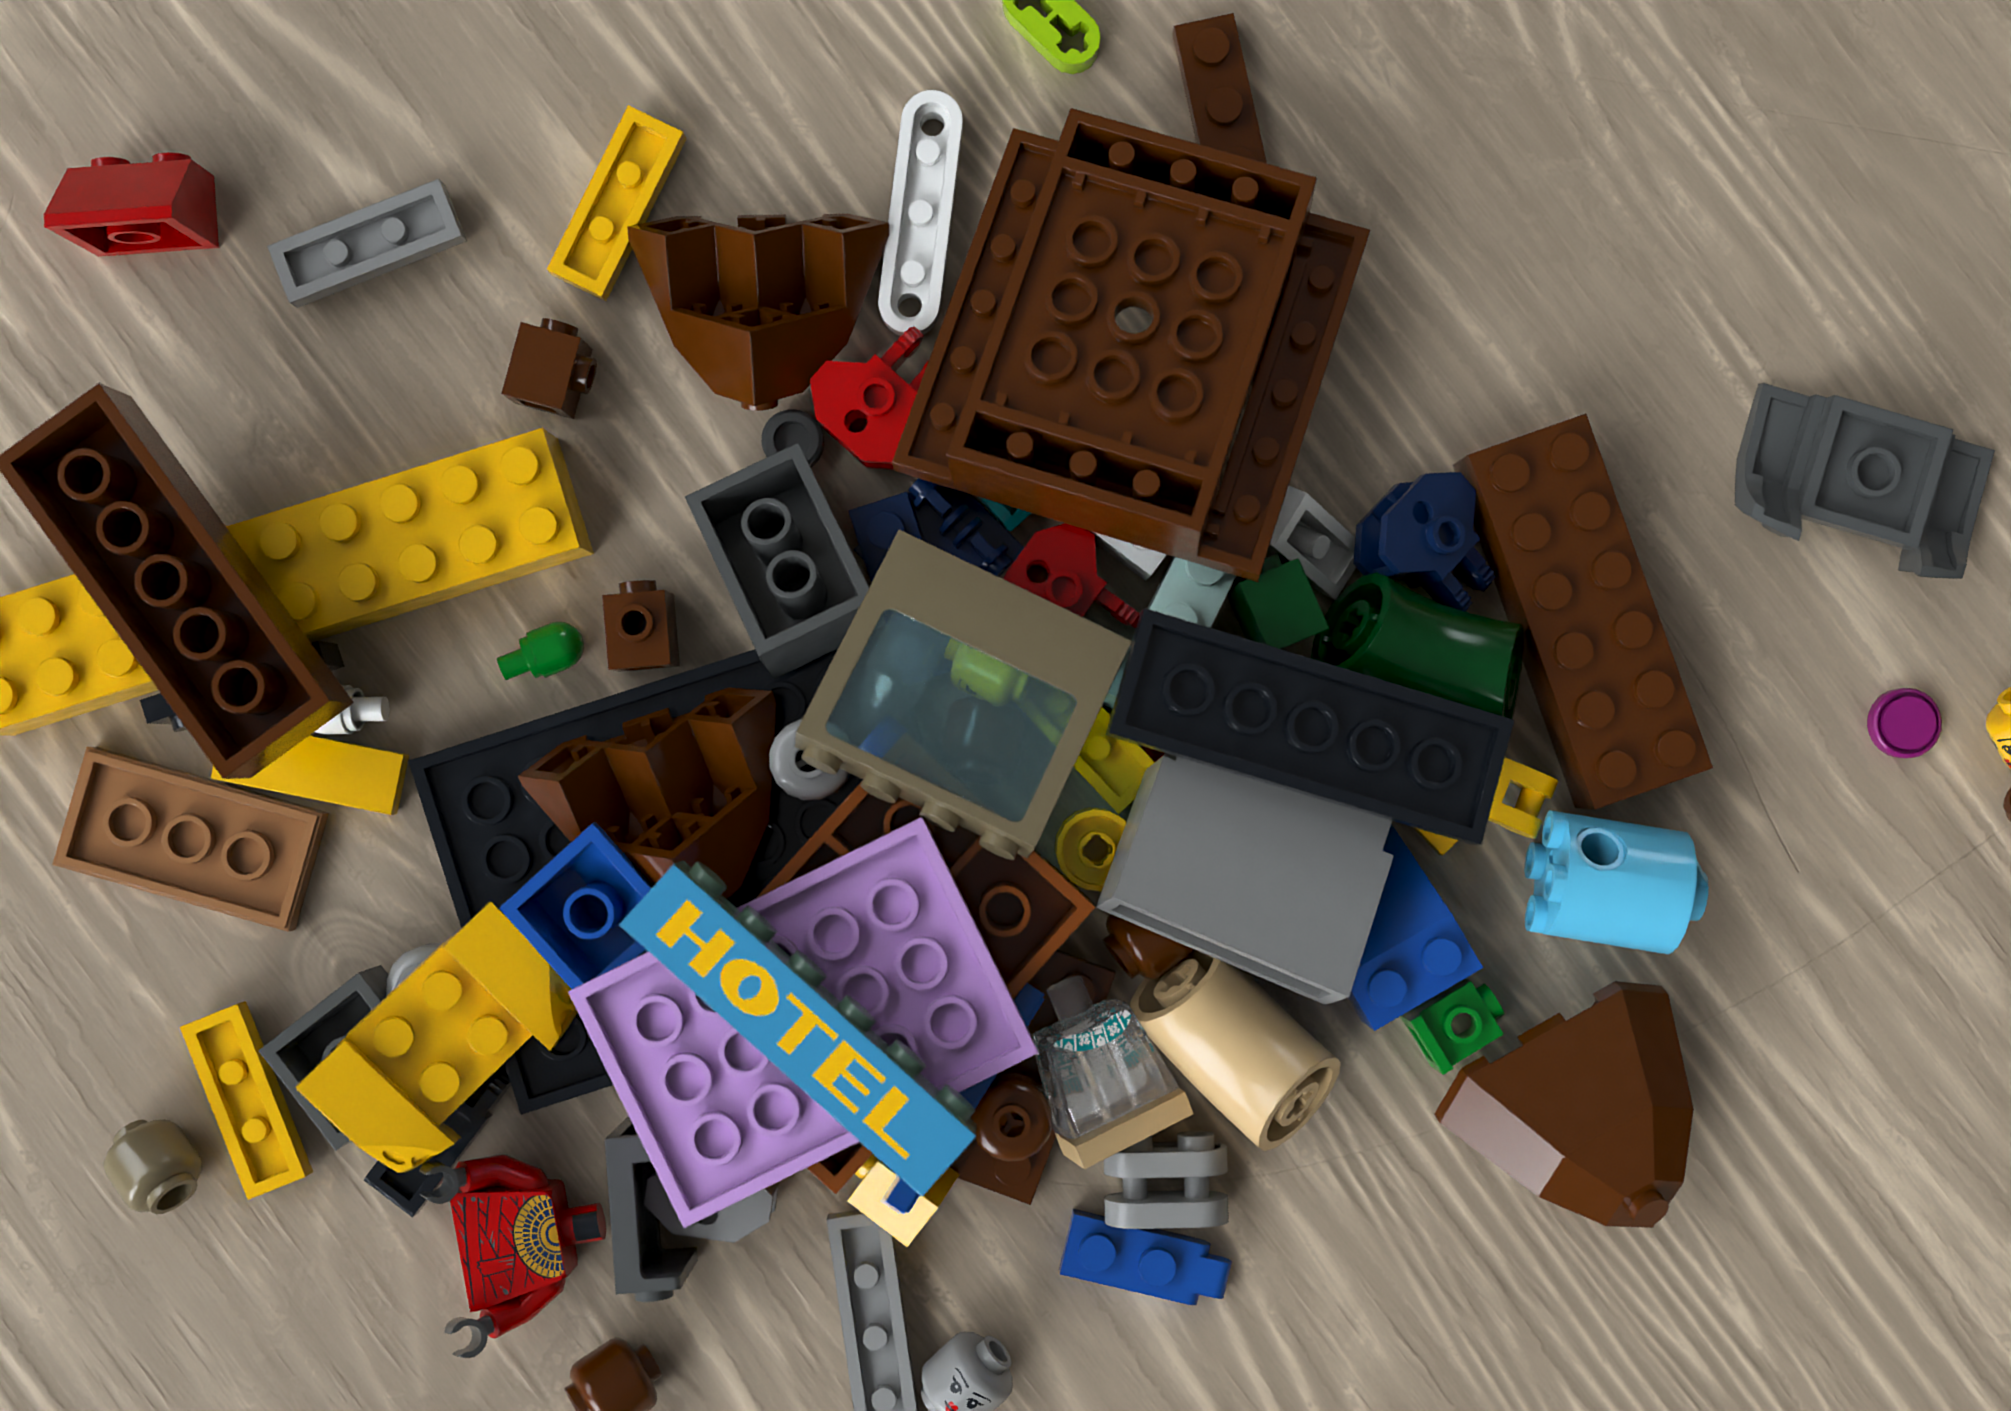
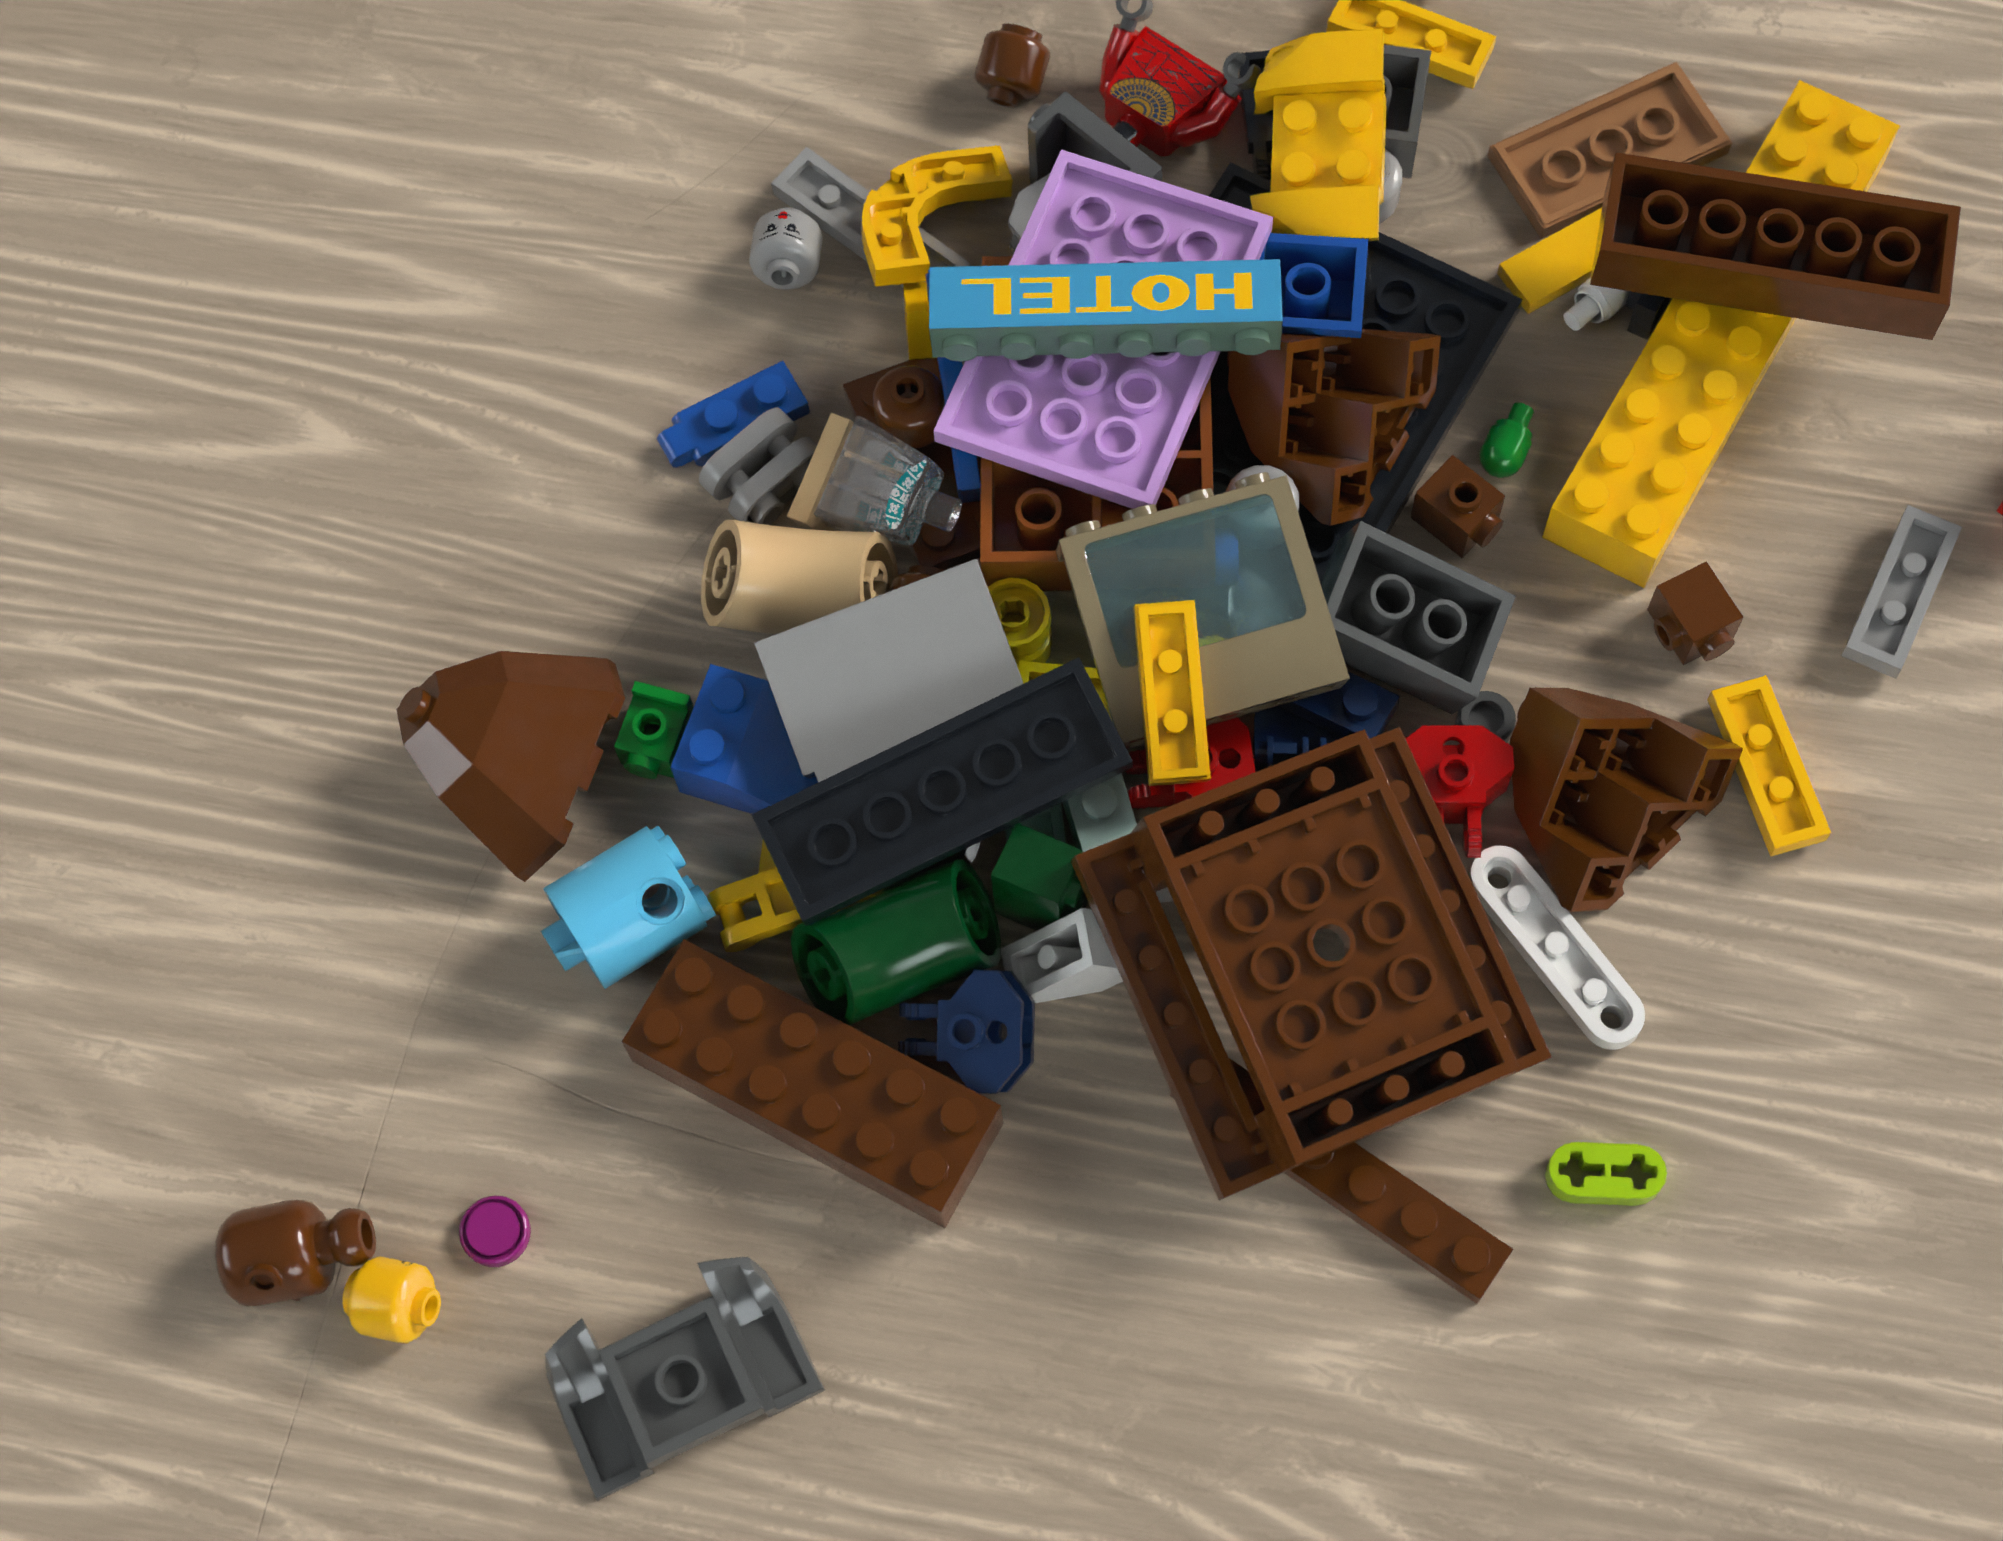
camera: 145 degrees right, 20 degrees down
(827, 1331) = (914, 191): none -> yellow plate
(1056, 640) = (1171, 693): none -> yellow tile

